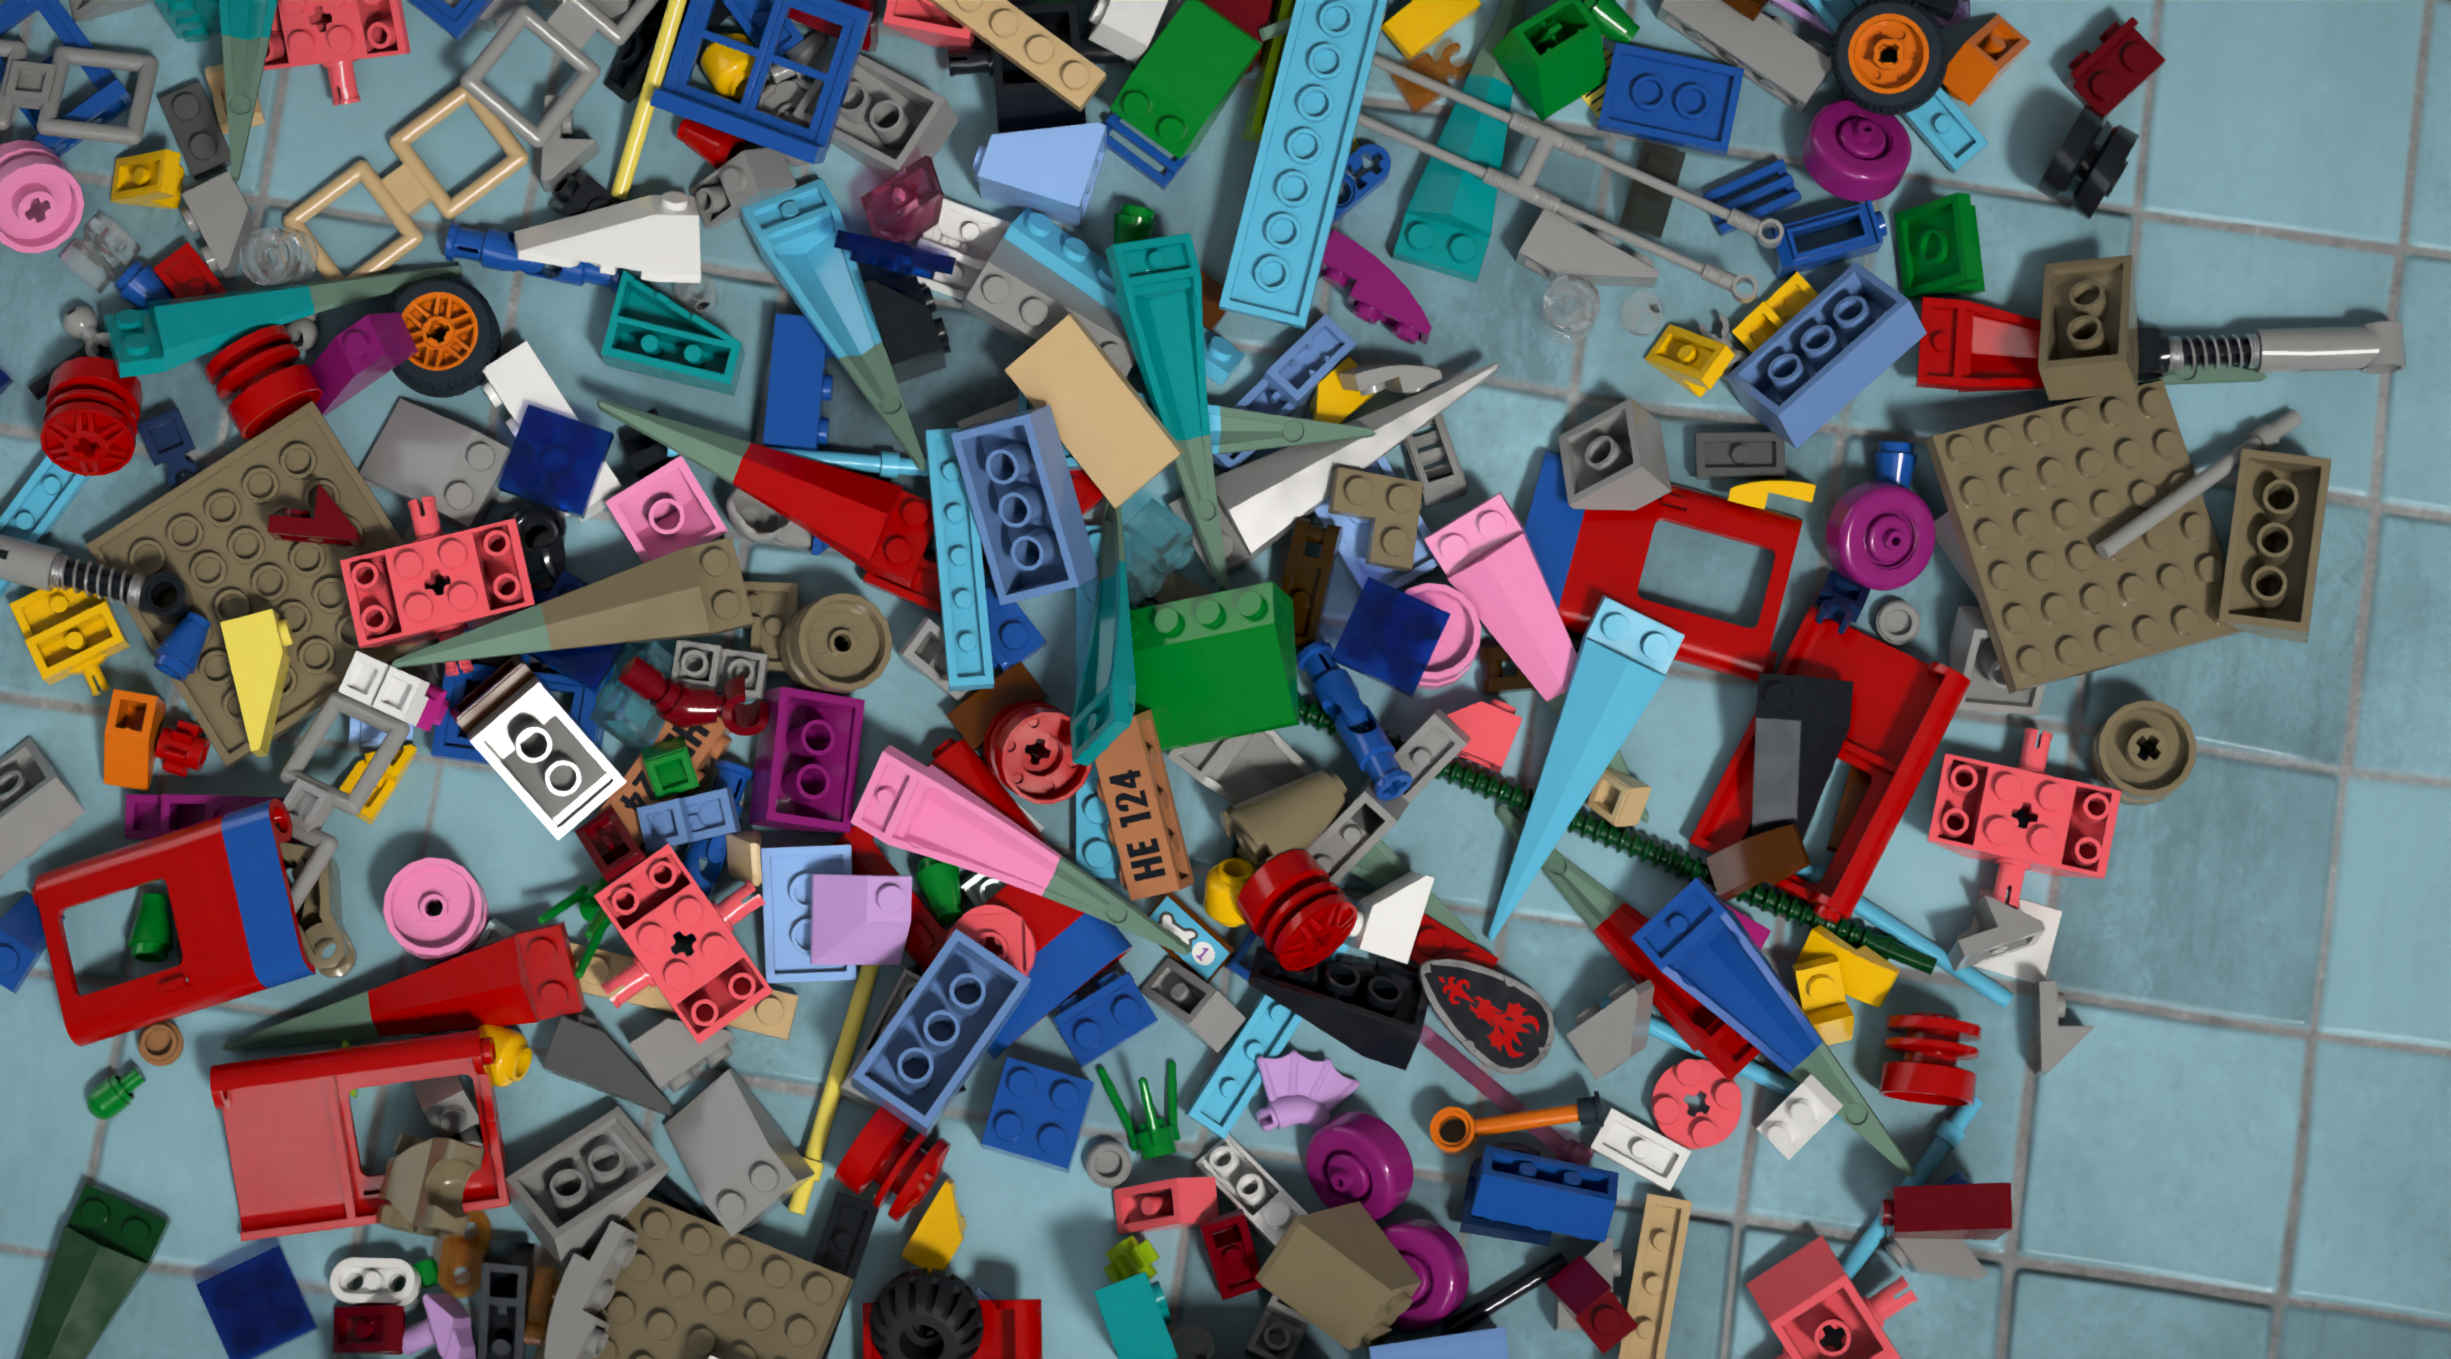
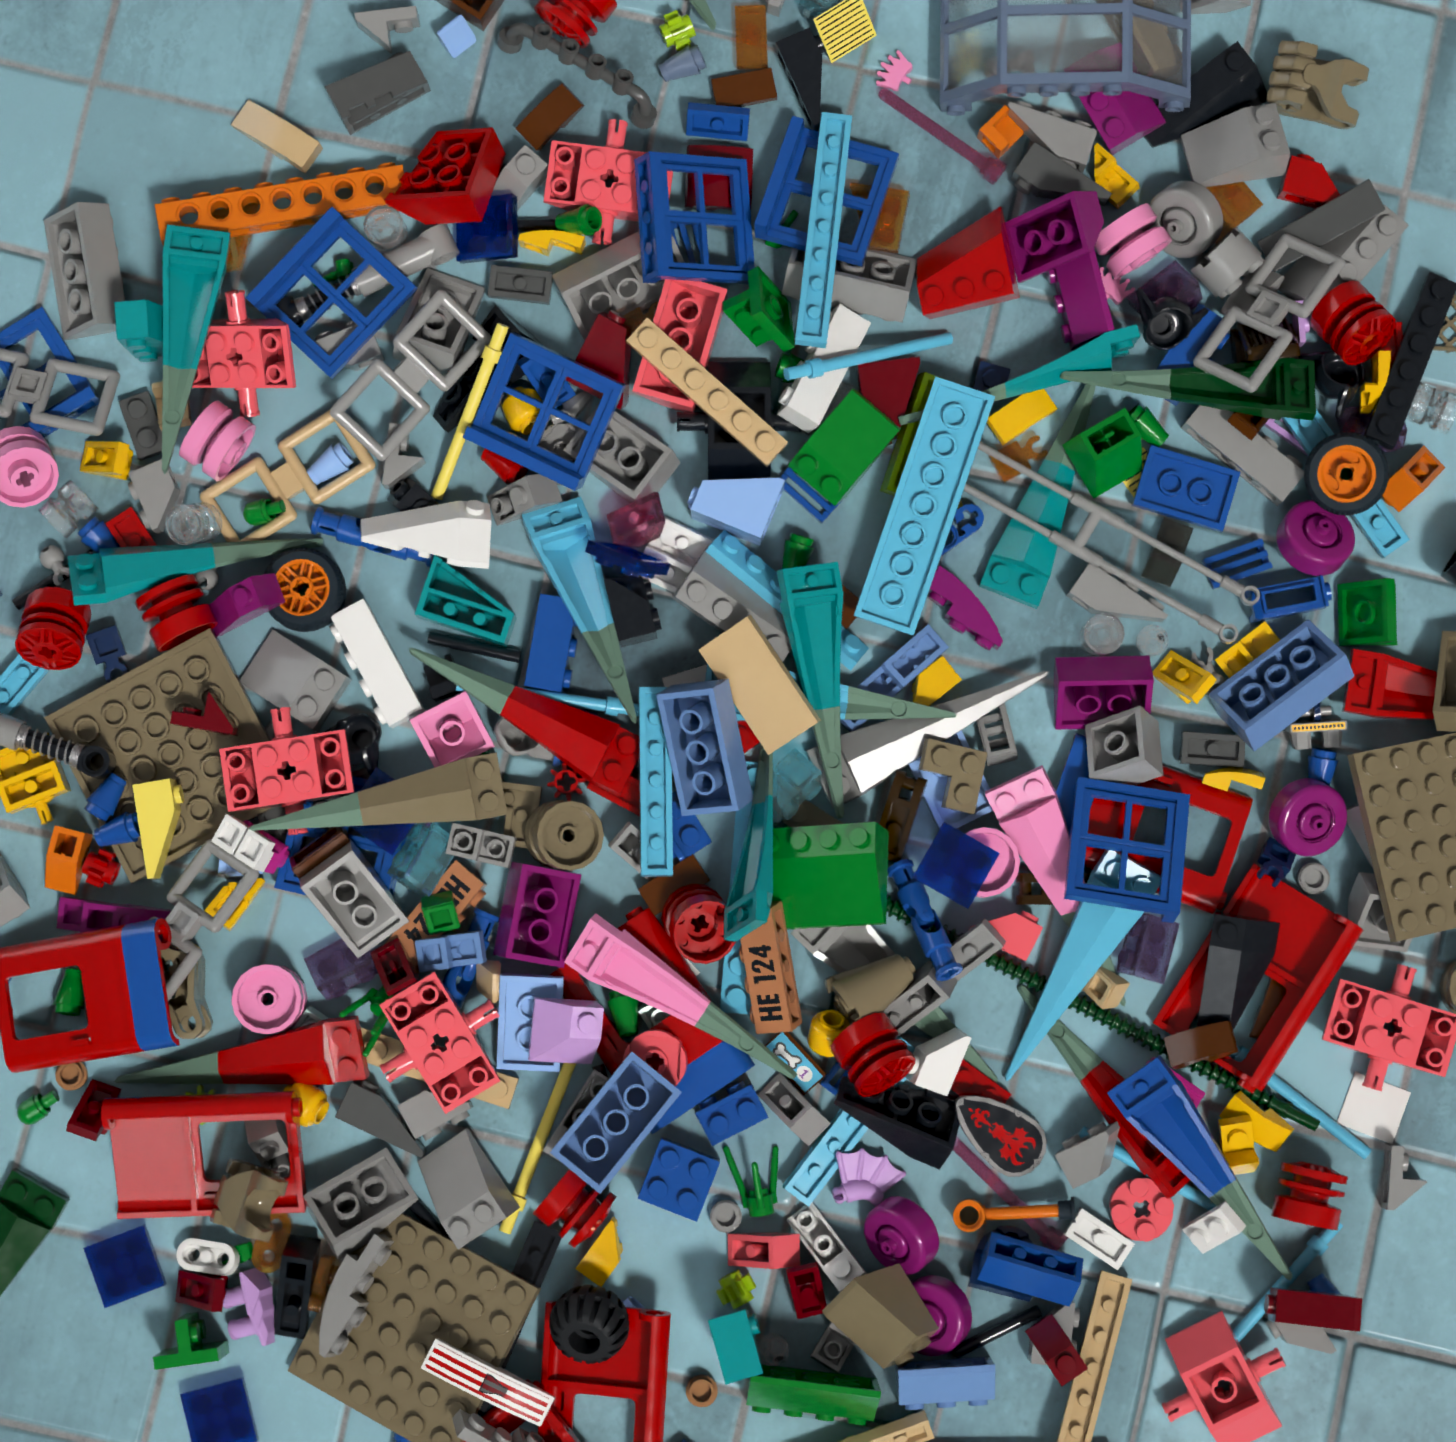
camera: 10 degrees right, 5 degrees up
(190, 1093) = (87, 1115): none -> dark red slope
(205, 691) = (118, 831): none -> blue cone
(304, 139) = (217, 440): none -> bright pink wheel
(374, 234) = (262, 511): none -> green cylinder
(465, 161) = (331, 463): none -> light blue cone
(534, 861) = (338, 969): none -> clear purple bracket
(555, 461) = (377, 687): clear blue plate -> none
(688, 399) = (474, 647): none -> black bar
(695, 706) = (462, 871): dark red piece -> none
(697, 297) = (486, 578): clear tile -> none
(823, 571) = (559, 776): none -> red gear
(1392, 376) = (973, 673): light grey slope -> none
(1572, 381) = (1099, 687): none -> magenta slope
(1673, 738) = (1148, 949): none -> clear purple bracket
(1692, 595) = (1172, 852): none -> blue window
(1902, 413) = (1330, 729): none -> light grey hips
(2000, 933) = (1366, 1107): light grey slope -> none

